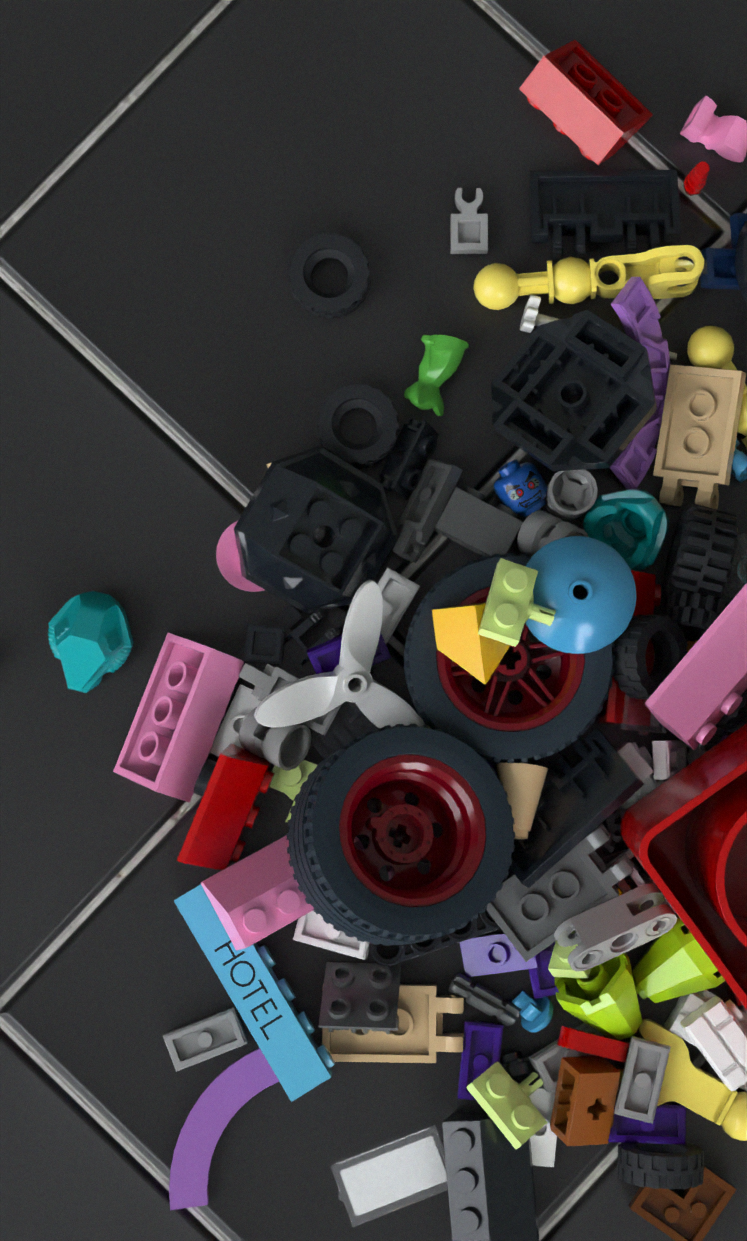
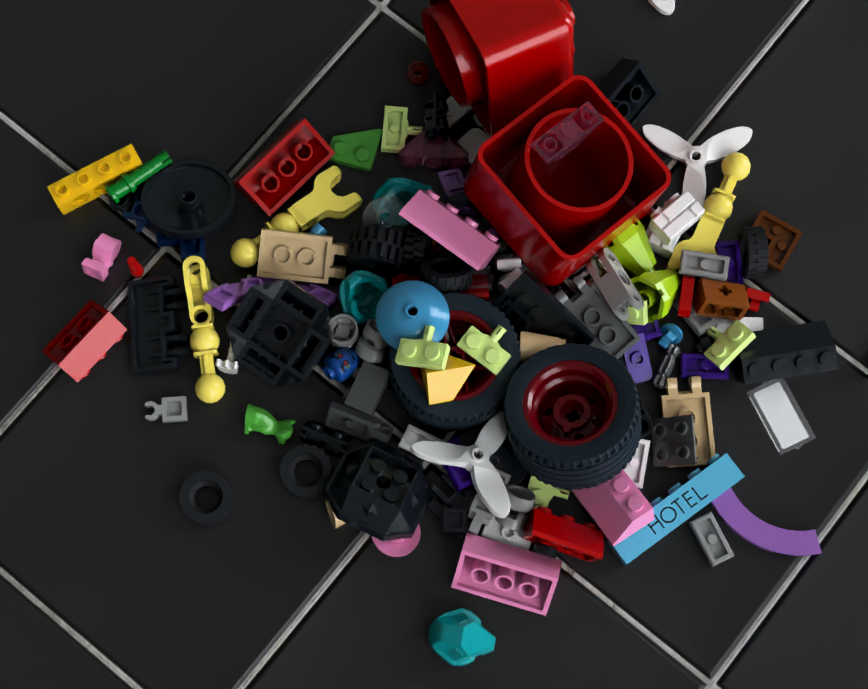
camera: 100 degrees left, 10 degrees down
(516, 706) = (485, 348): none -> yellowish green plate
(589, 1159) = (756, 297): none -> red tile

